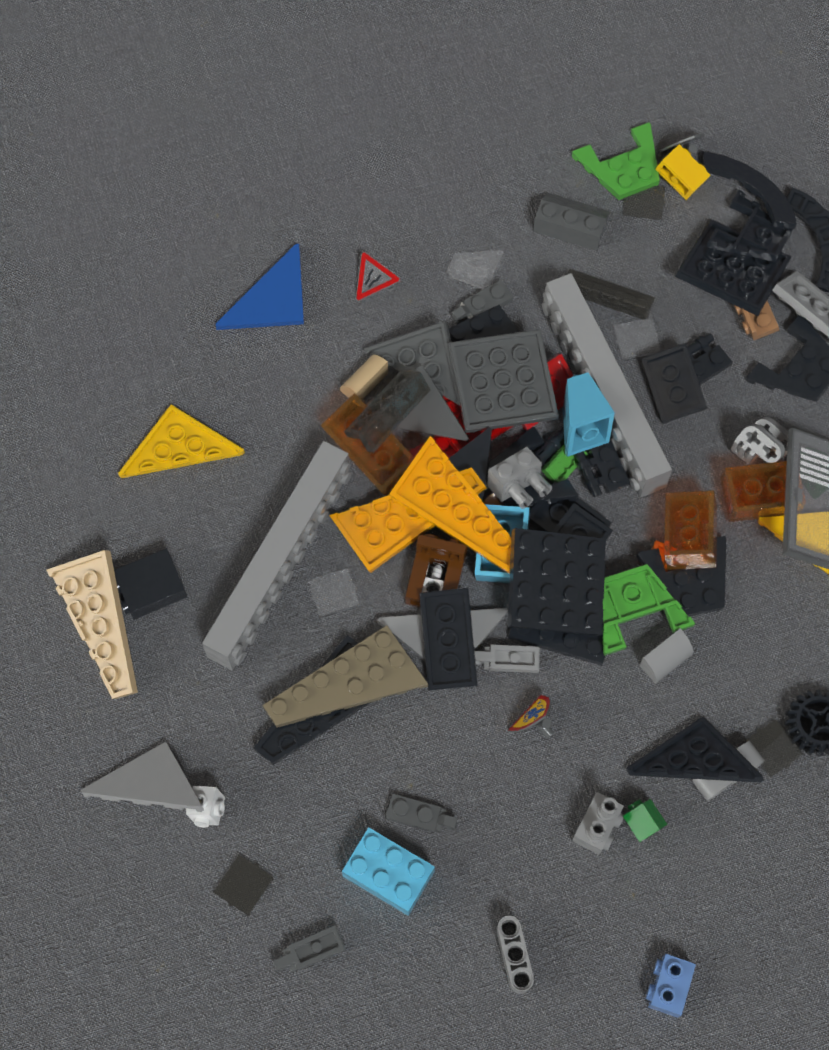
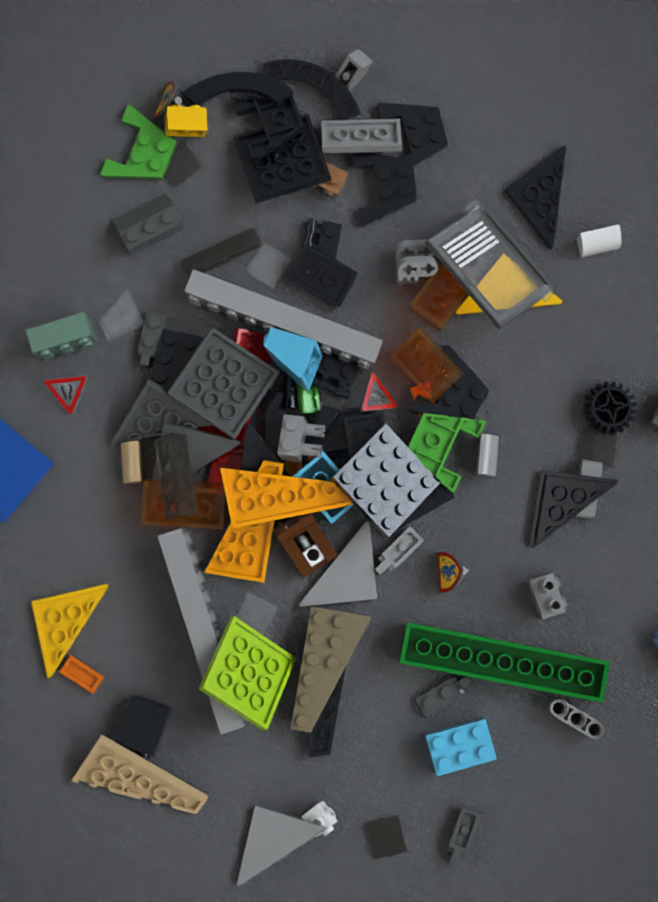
camera: 50 degrees left, 15 degrees up
(147, 498) = (81, 674): none -> orange tile
(277, 619) = (247, 673): none -> lime plate
(413, 232) = (61, 336): none -> sand green brick
(448, 639) = (355, 577): black tile -> none
(503, 840) = (504, 662): none -> green brick
(620, 518) = (376, 396): none -> piece
(644, 819) = (570, 567): brick -> none

